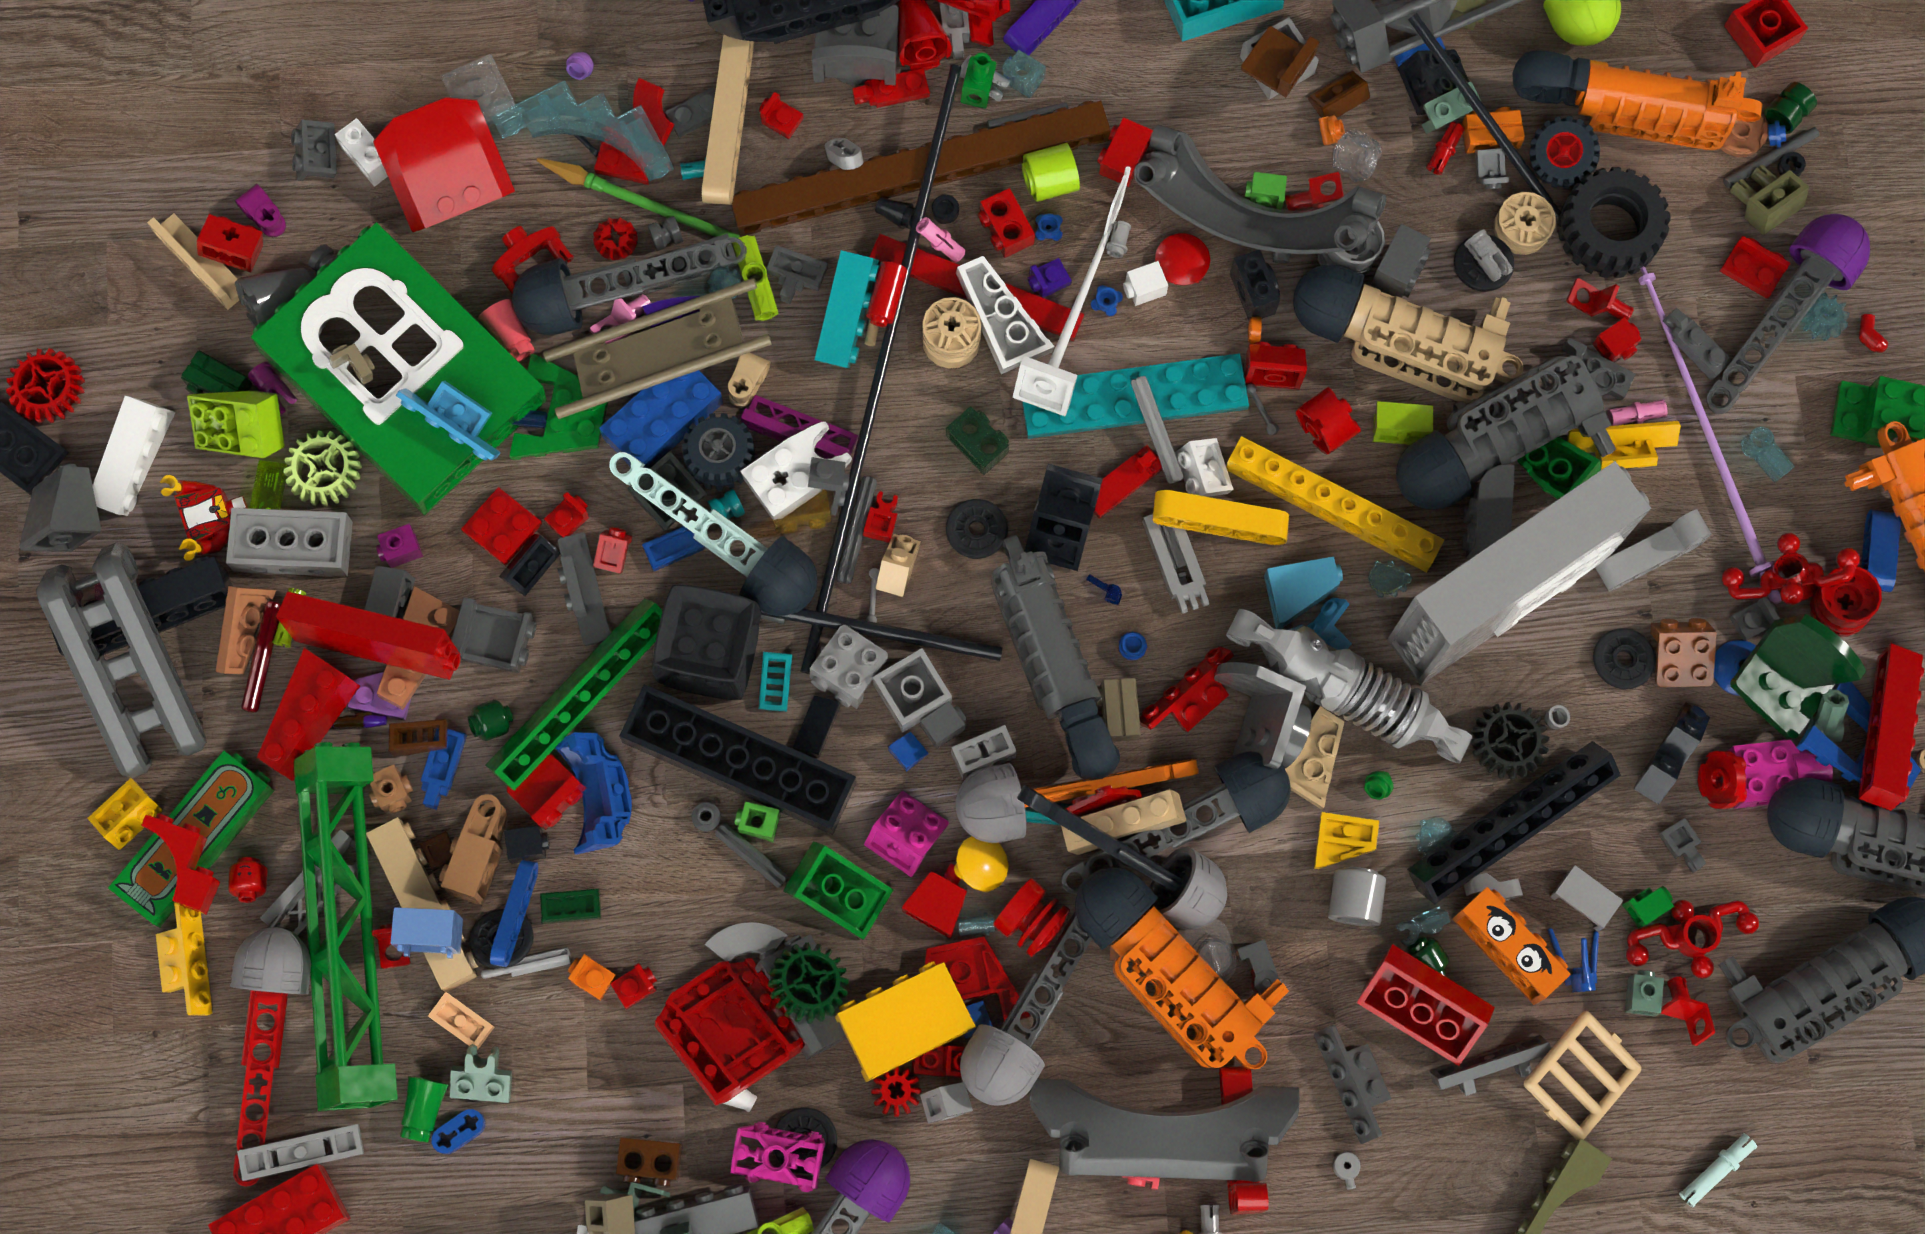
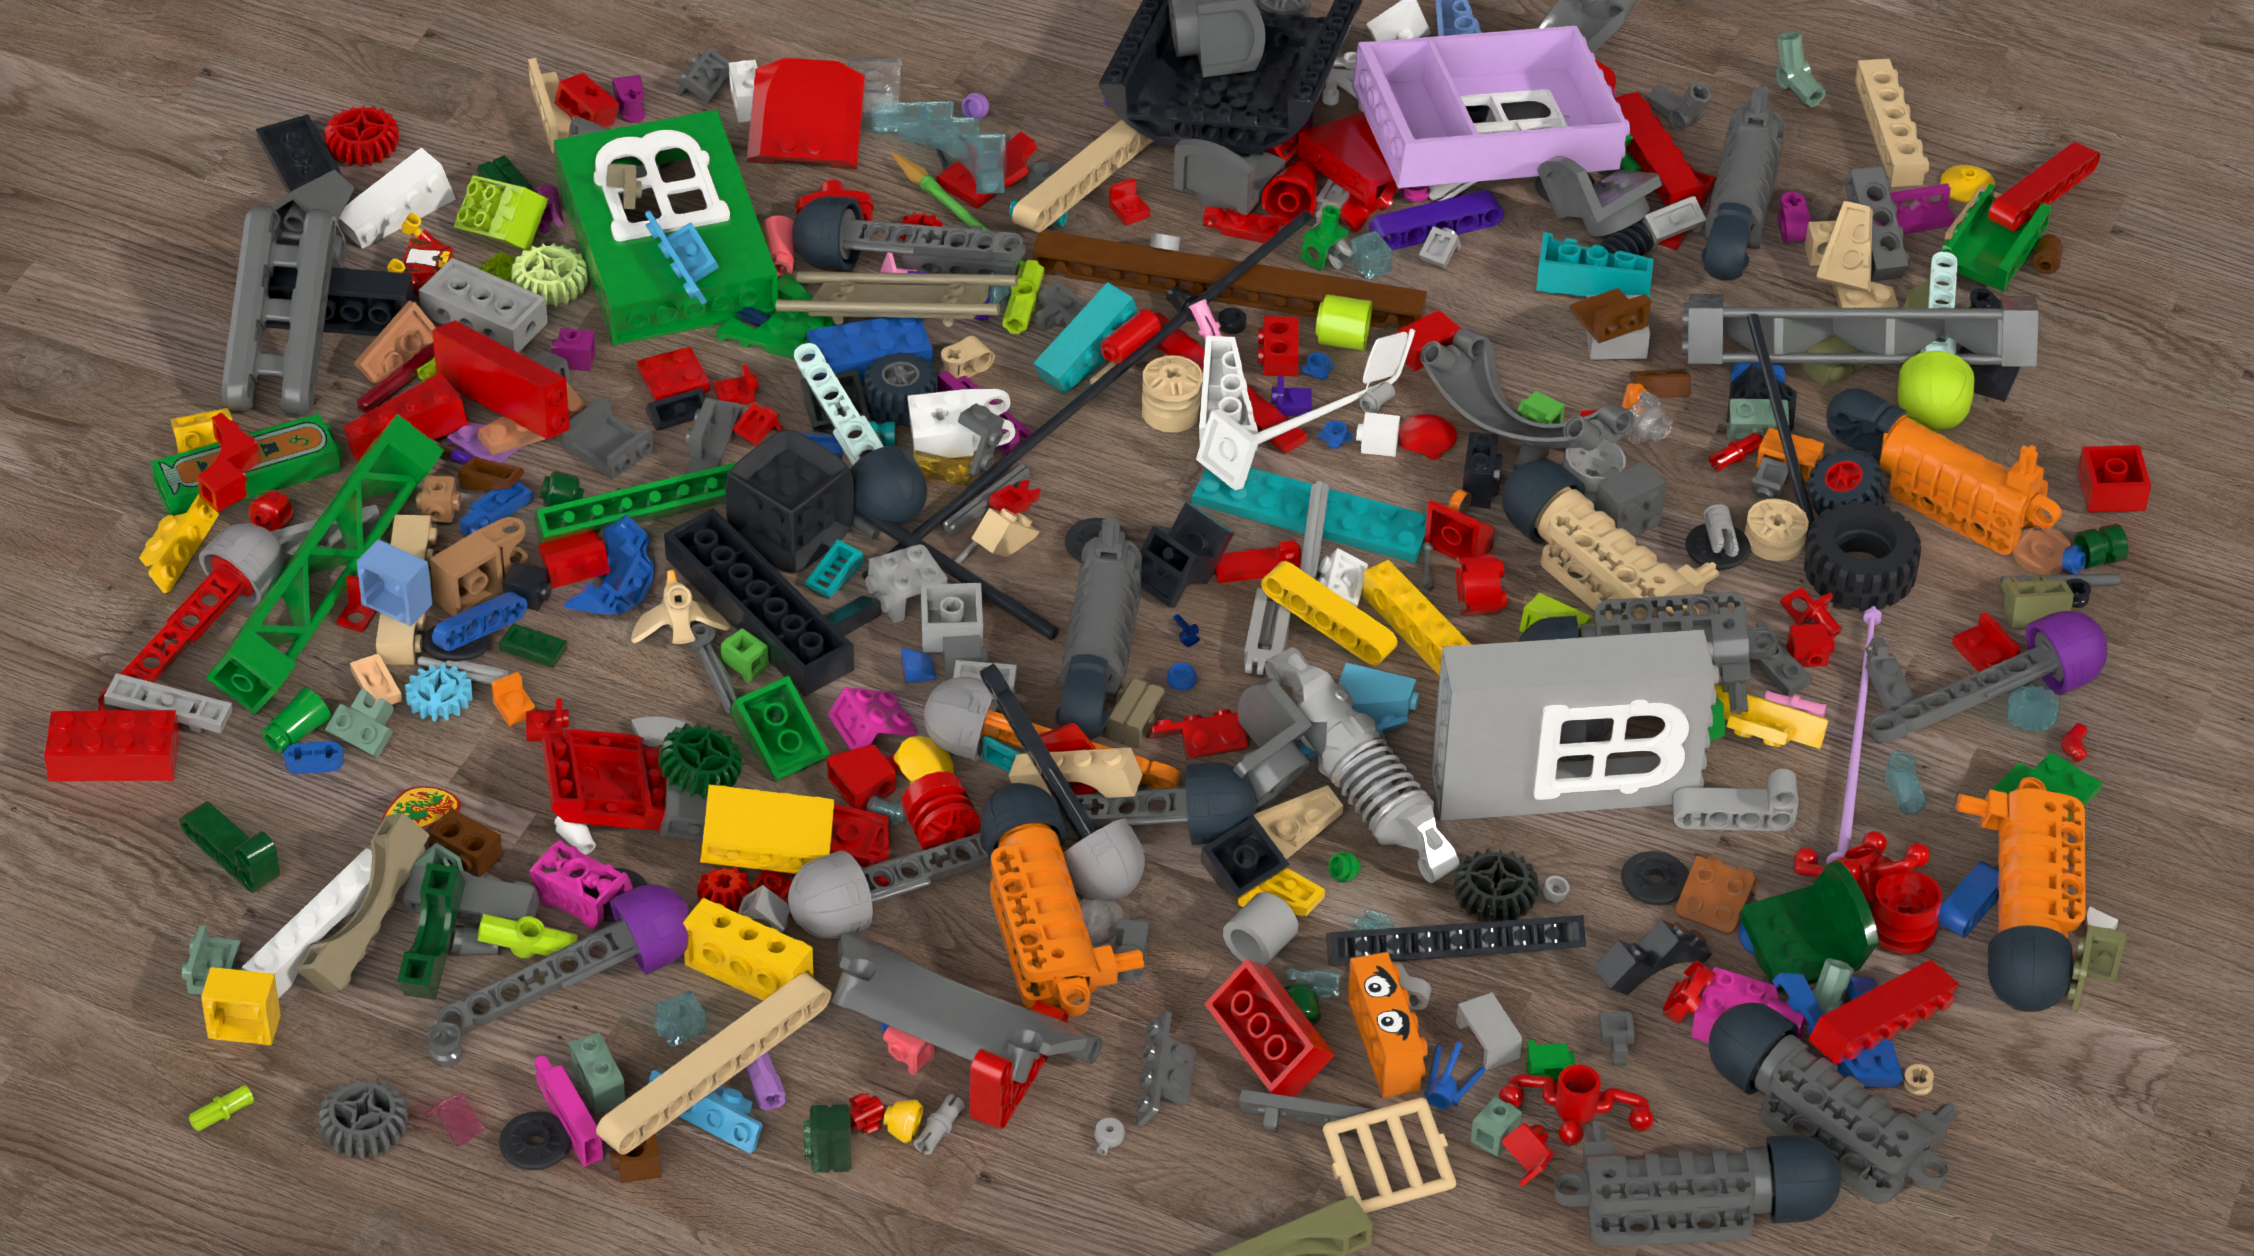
camera: 30 degrees right, 30 degrees down
(510, 1010) = (438, 692): none -> medium azure gear
(590, 1148) = (423, 805): none -> shield
(675, 806) = (677, 611): none -> tan animal
(971, 444) = (1143, 479): clear green brick -> none
(1010, 1169) = (743, 951): none -> yellow brick
(1077, 34) = (1440, 246): none -> light grey bracket
(1304, 831) = (1243, 858): none -> black slope

